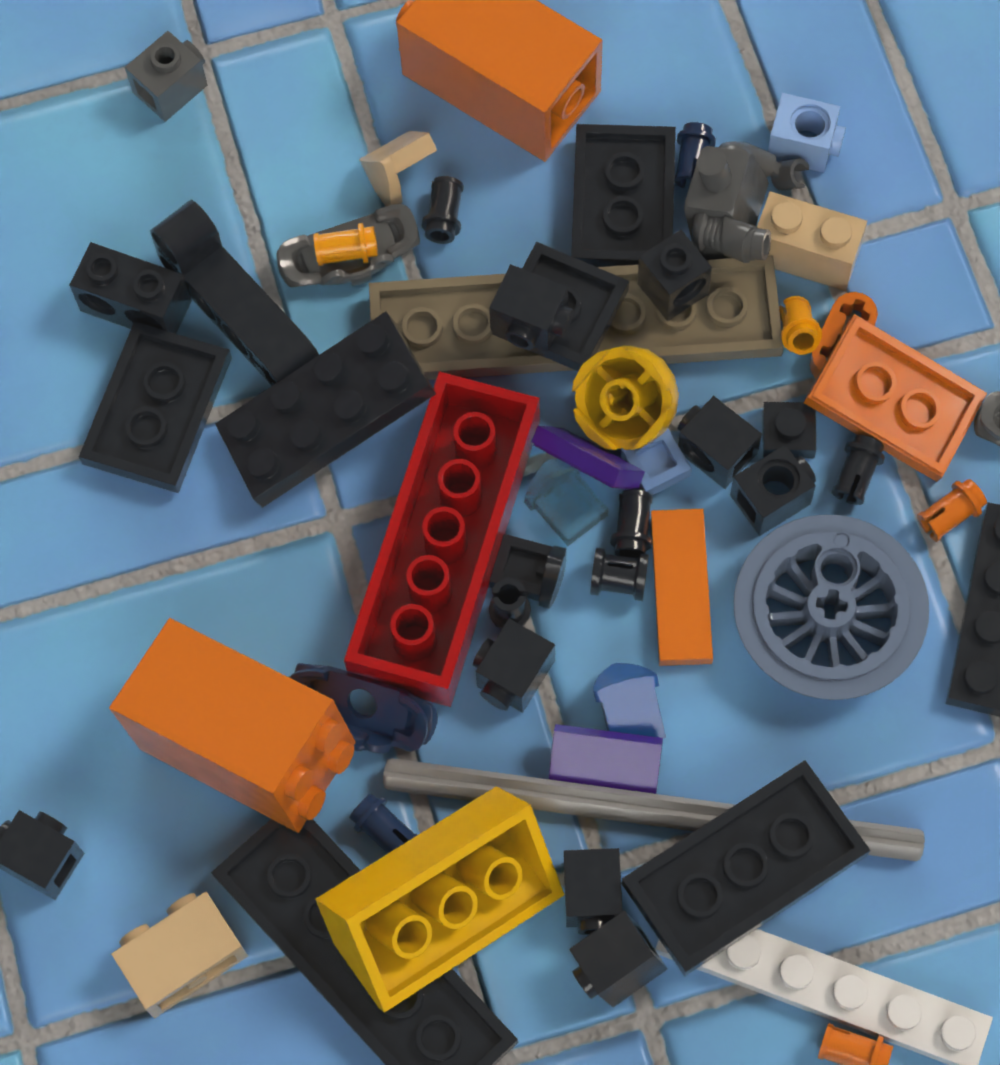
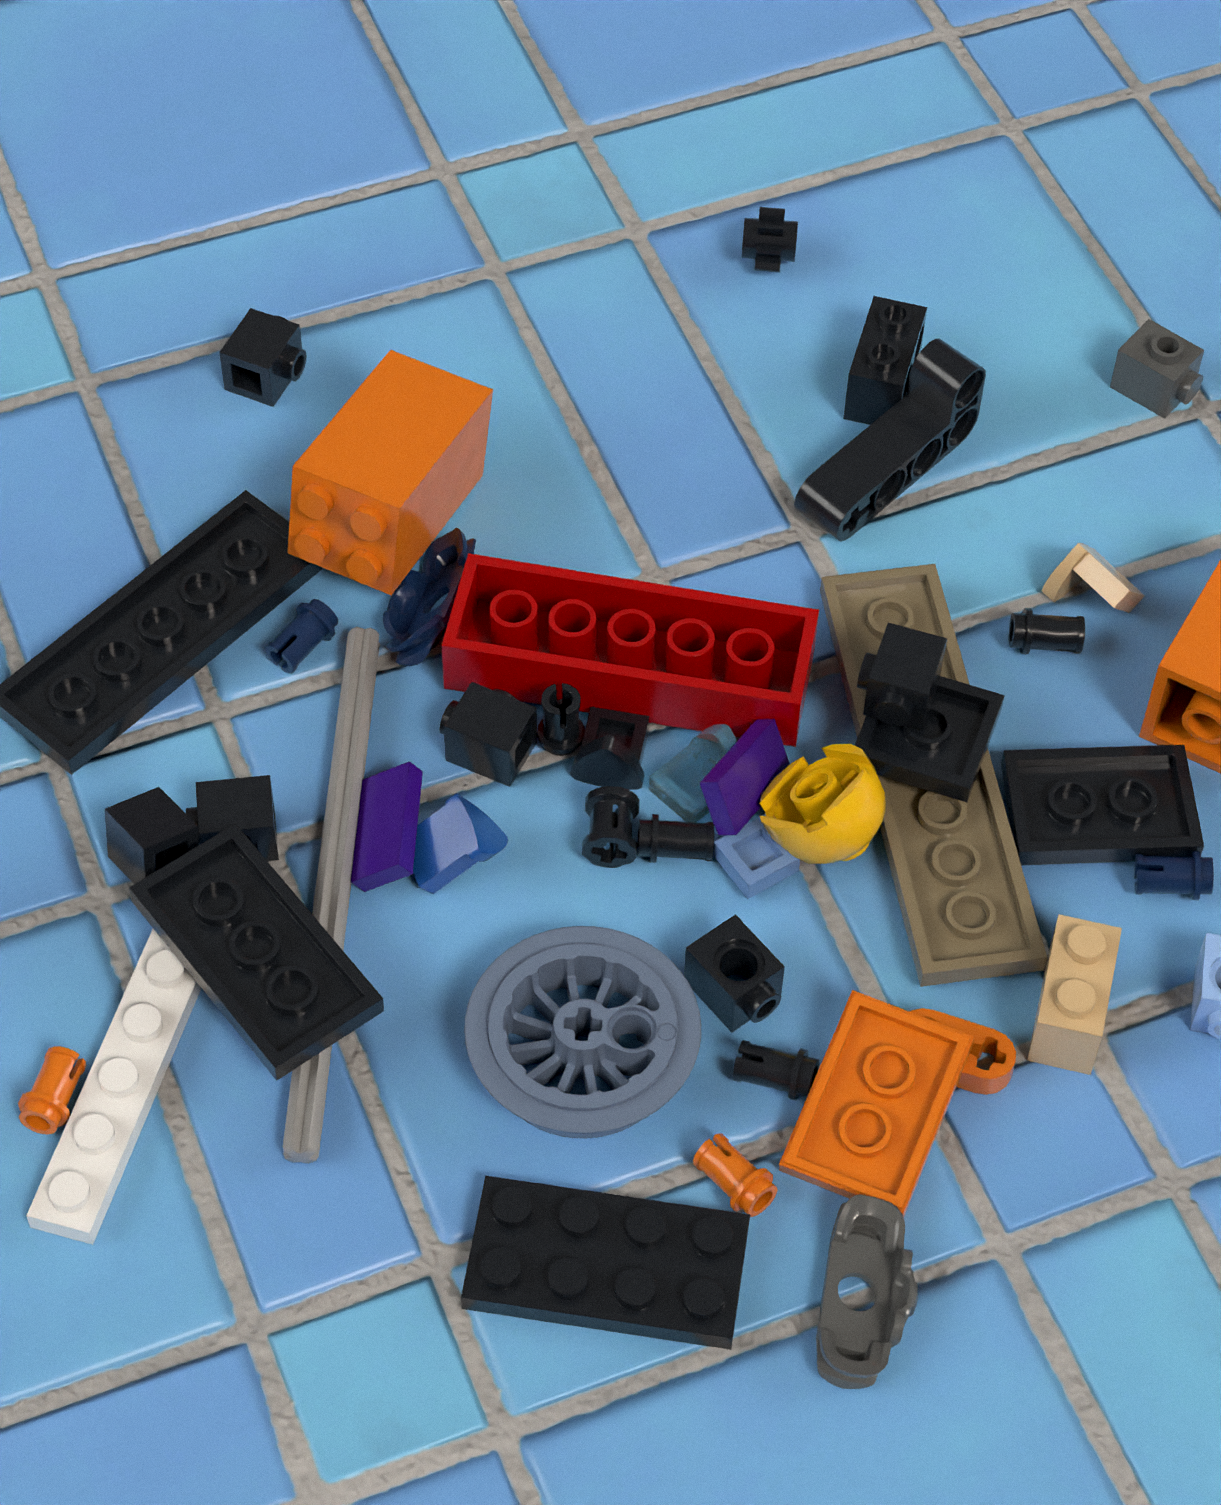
camera: 80 degrees right, 15 degrees down
(155, 407) = (759, 402): black plate -> none
(178, 953) = (162, 475): tan brick -> none
(324, 409) = (769, 529): black plate -> none
(346, 245) = (981, 549): light orange pin -> none
(395, 235) = (962, 520): dark grey piece -> none
(441, 896) = (216, 669): yellow slope -> none
(674, 275) = (985, 833): black brick -> none
(681, 587) = (607, 895): orange tile -> none
(718, 441) = (791, 912): black brick -> none
(729, 197) = (1113, 882): dark grey torso -> none
(790, 425) = (818, 996): black plate -> none
(800, 331) = (943, 986): light orange pin -> none

